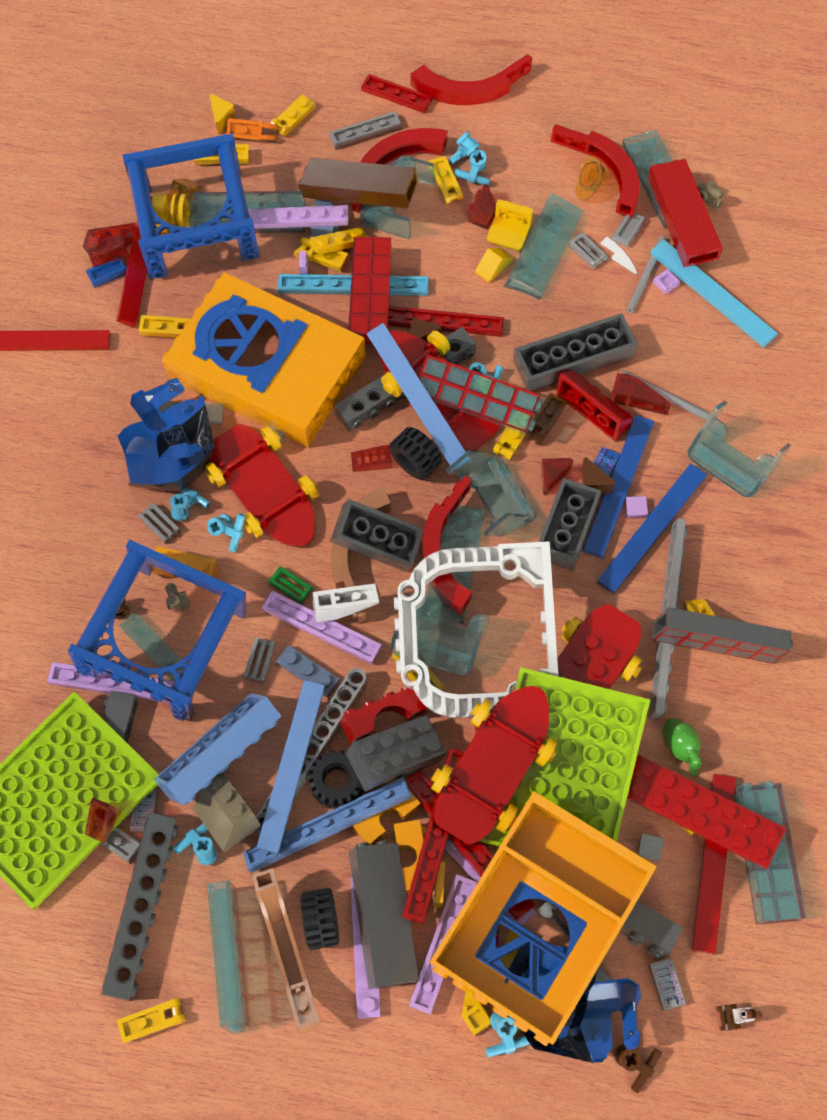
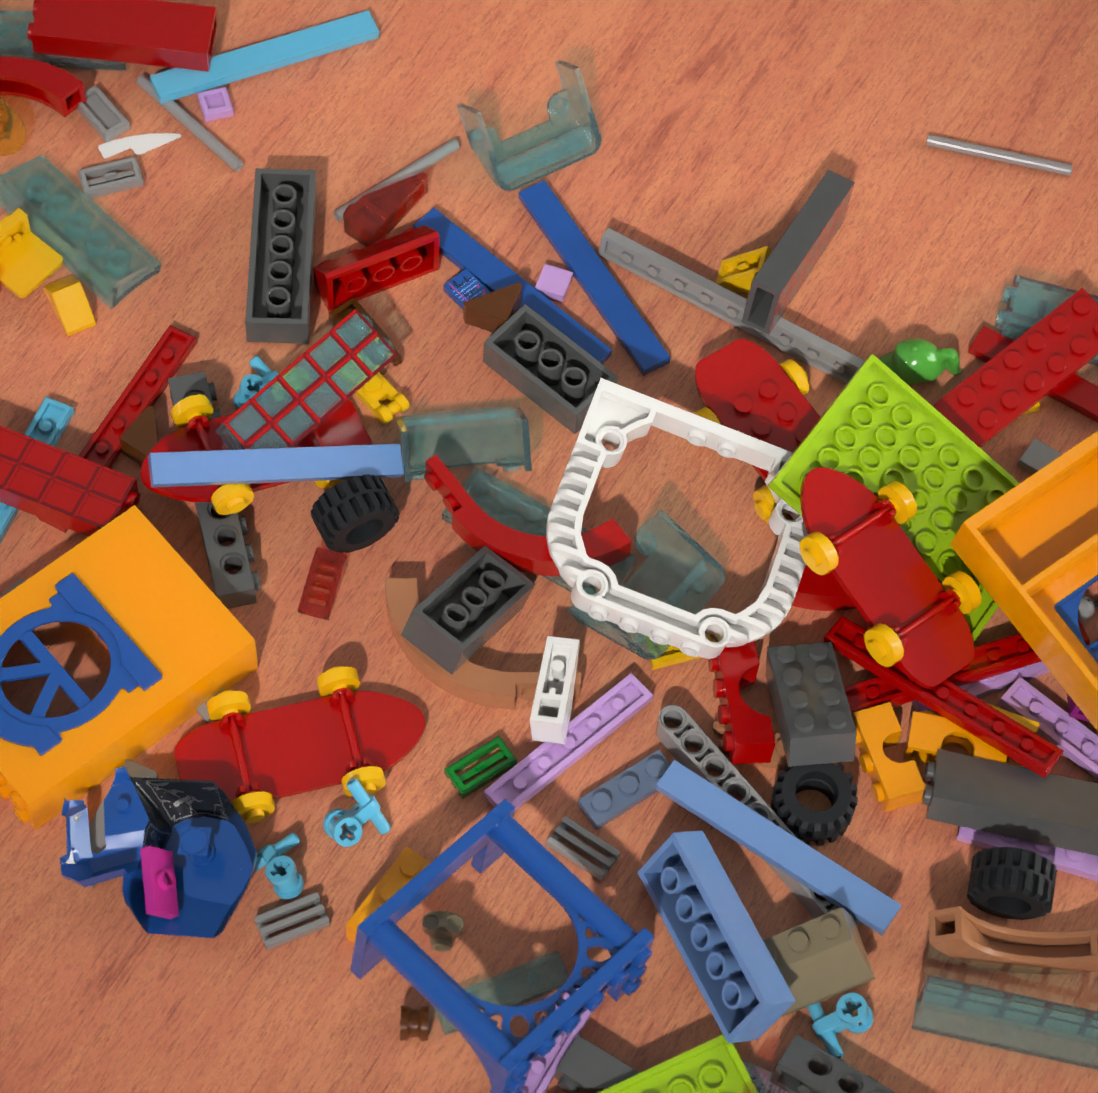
camera: 75 degrees left, 5 degrees down
(150, 445) = (159, 882): none -> dark pink plate
(331, 823) = (877, 827): medium blue tile -> none
(553, 471) = (458, 361): clear red slope -> none

